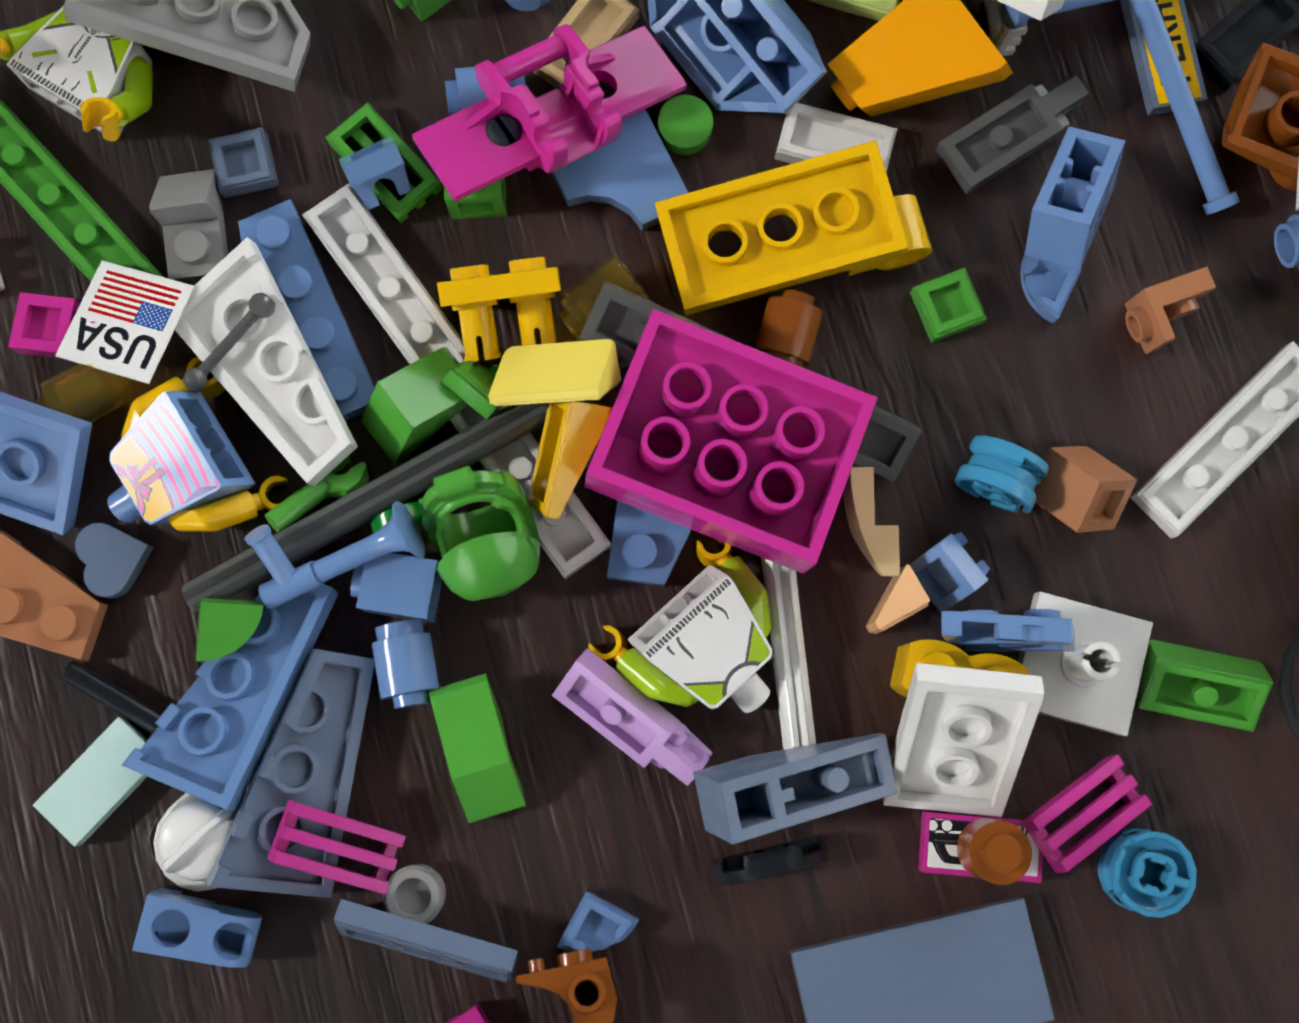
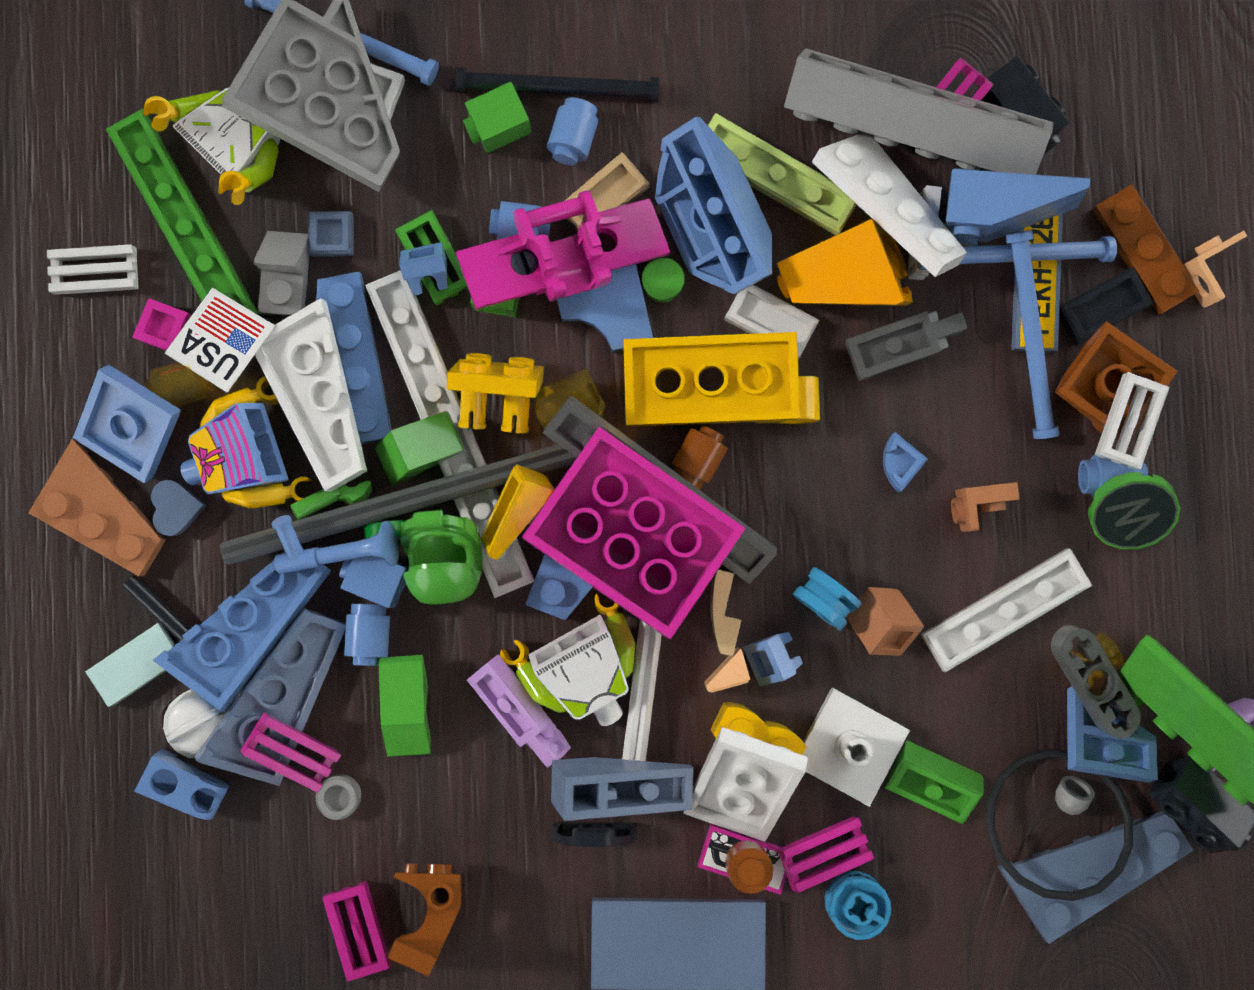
camera: 15 degrees right, 5 degrees up
(225, 626) = (245, 579): bright green tile -> none
(260, 306) = (318, 353): dark grey hinge -> none
(425, 941) = (338, 832): sand blue tile -> none
(472, 385) = (466, 446): bright green tile -> none
(556, 373) = (519, 455): light yellow slope -> none
(596, 925) = (461, 848): medium blue tile -> none
(948, 305) = (823, 461): bright green tile -> none
(994, 632) = (785, 708): medium blue wing -> none
(1074, 197) = (933, 407): medium blue brick -> none

